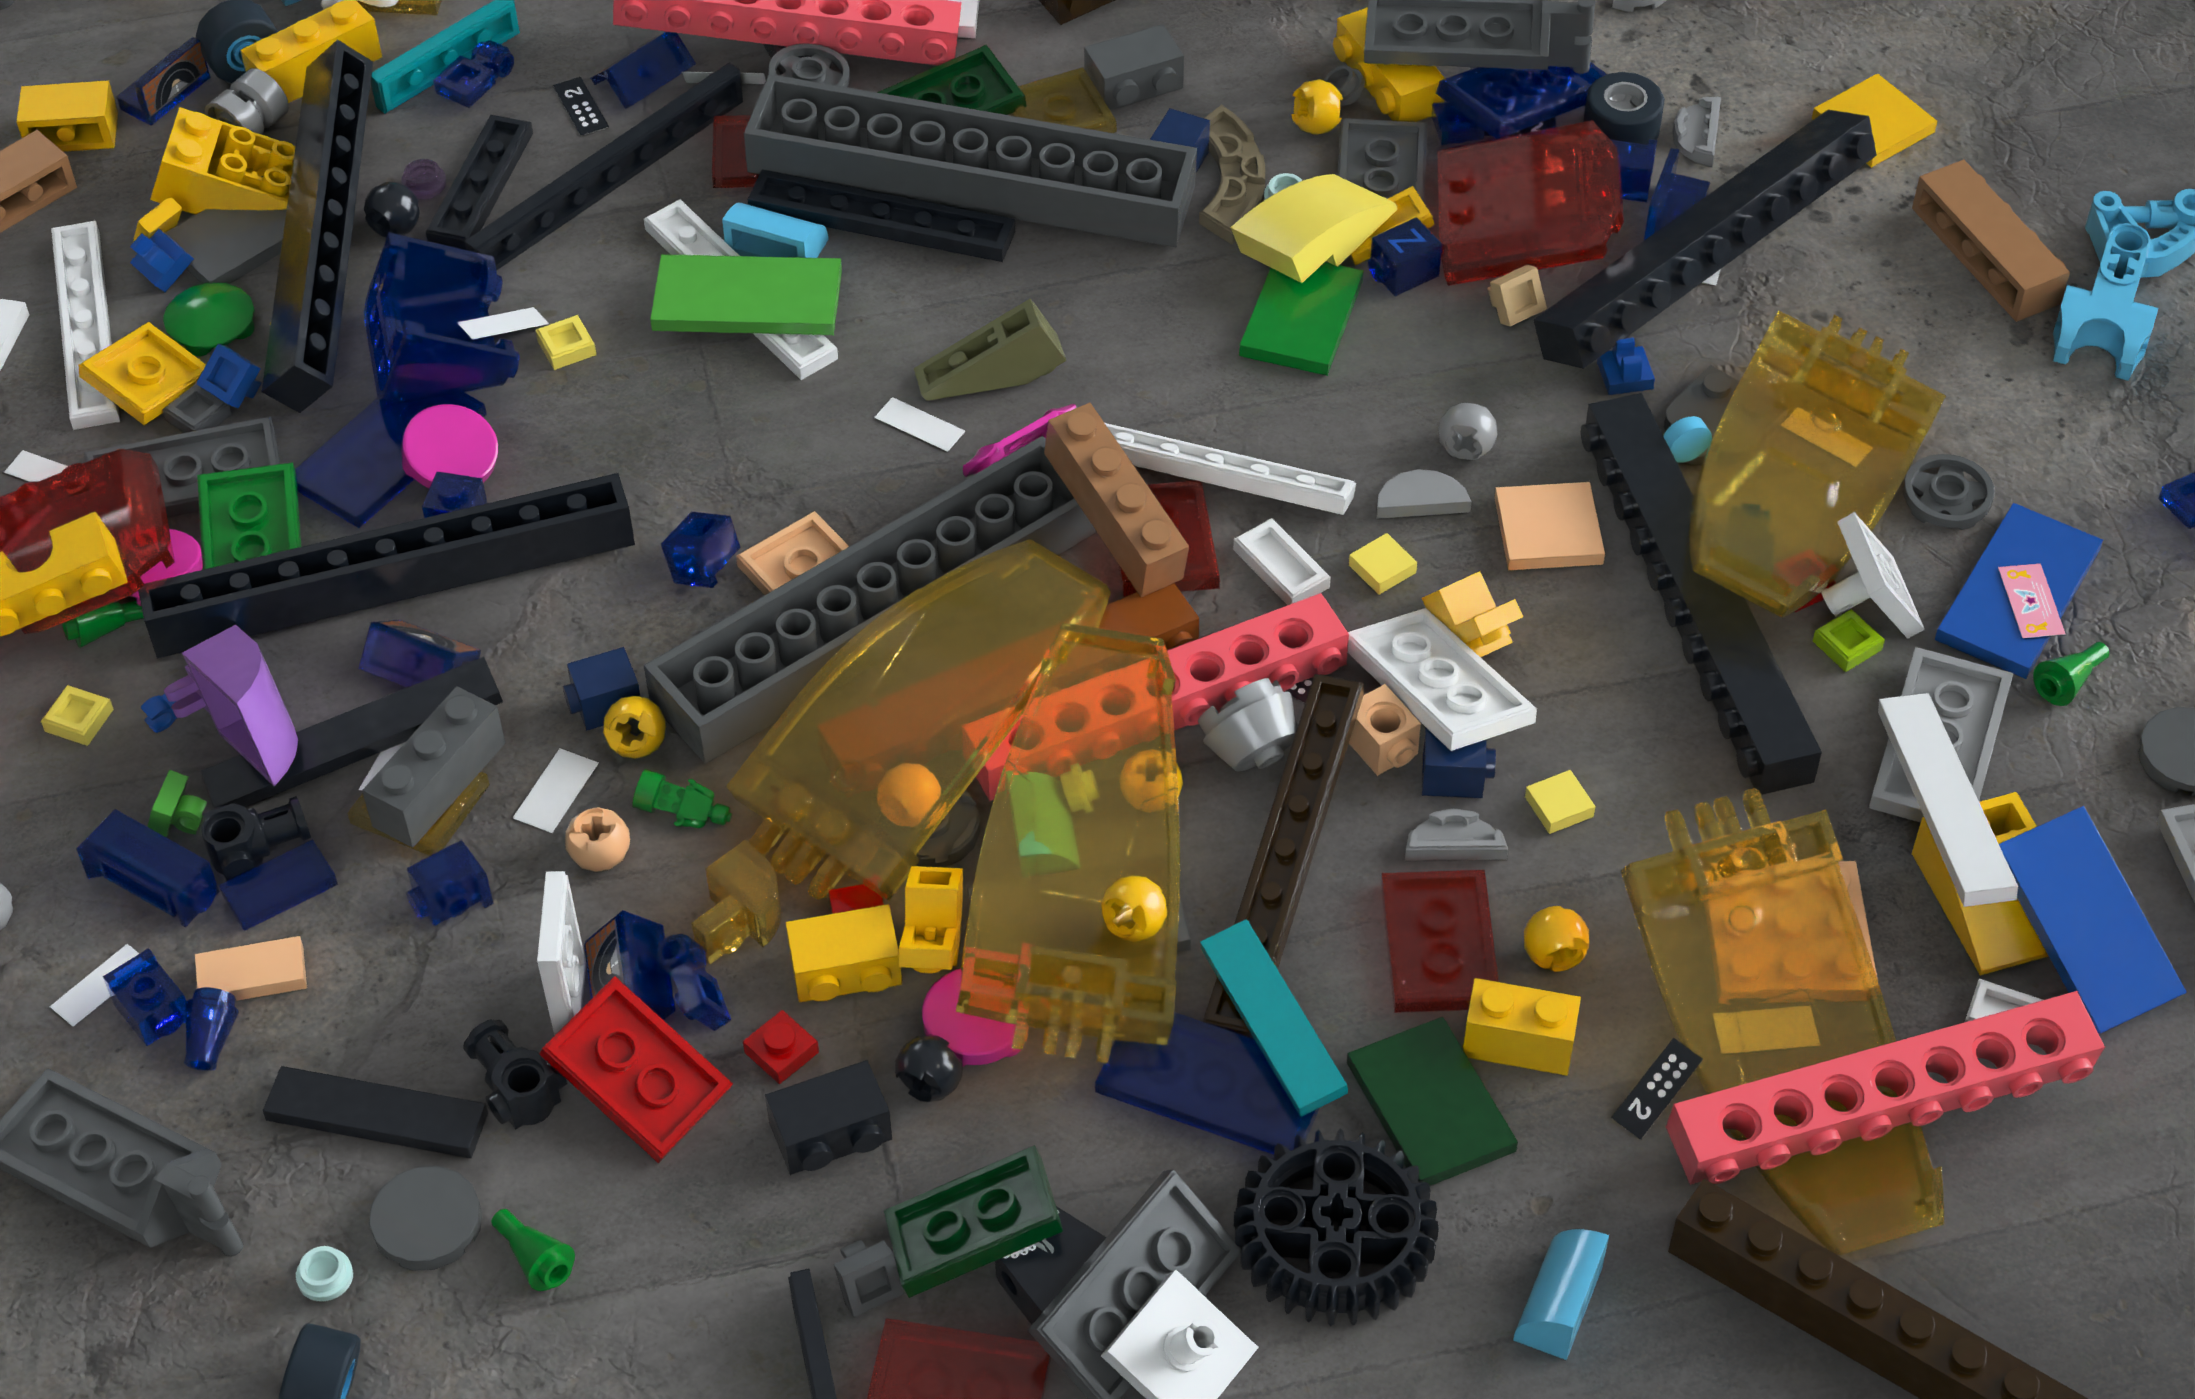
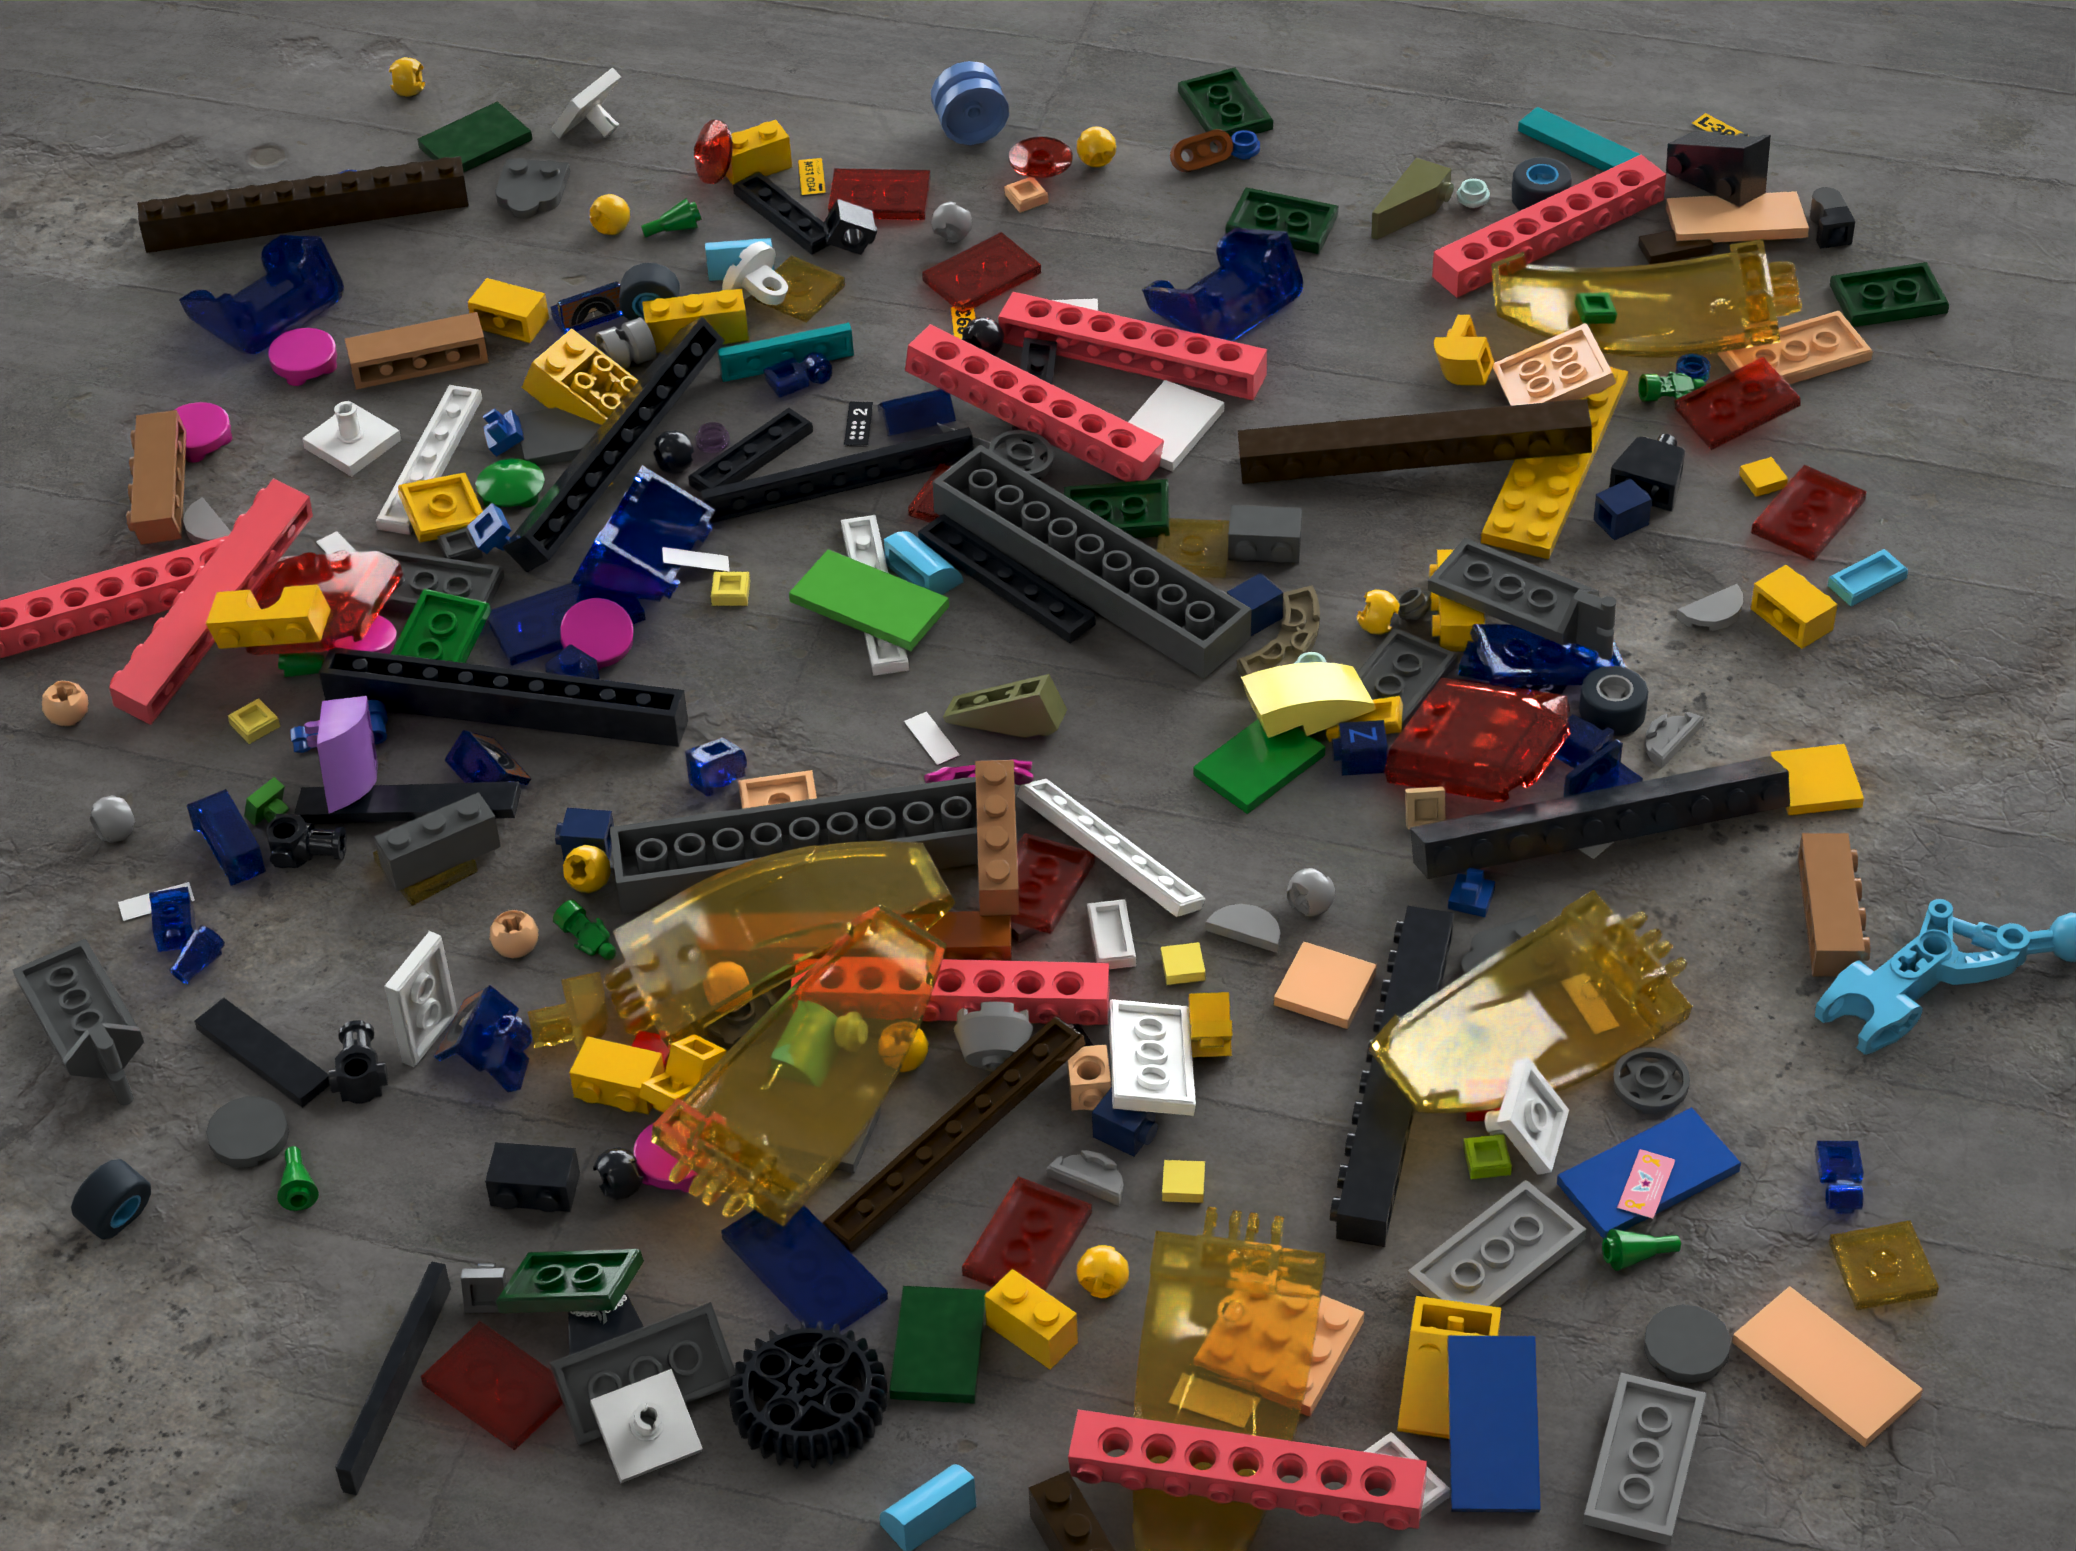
camera: 30 degrees right, 5 degrees down
(162, 217) = (518, 403): yellow tile -> none
(254, 968) = (250, 929): light nougat tile -> none
(278, 885) = (301, 881): clear blue tile -> none
(324, 1273) = (163, 1138): light aqua plate -> none
(447, 884) = (398, 923): clear blue brick -> none
(555, 790) = (516, 892): white sticker -> none
(636, 1069) = (432, 1092): red tile -> none
(780, 1046) = (539, 1120): red plate -> none
(1134, 908) = (815, 1123): yellow piece -> none
(1274, 1018) = (863, 1238): teal tile -> none
(1657, 1088) = (1100, 1400): black sticker -> none
(1688, 438) = (1462, 958): medium azure tile -> none
(1947, 800) = (1439, 1290): white tile -> none

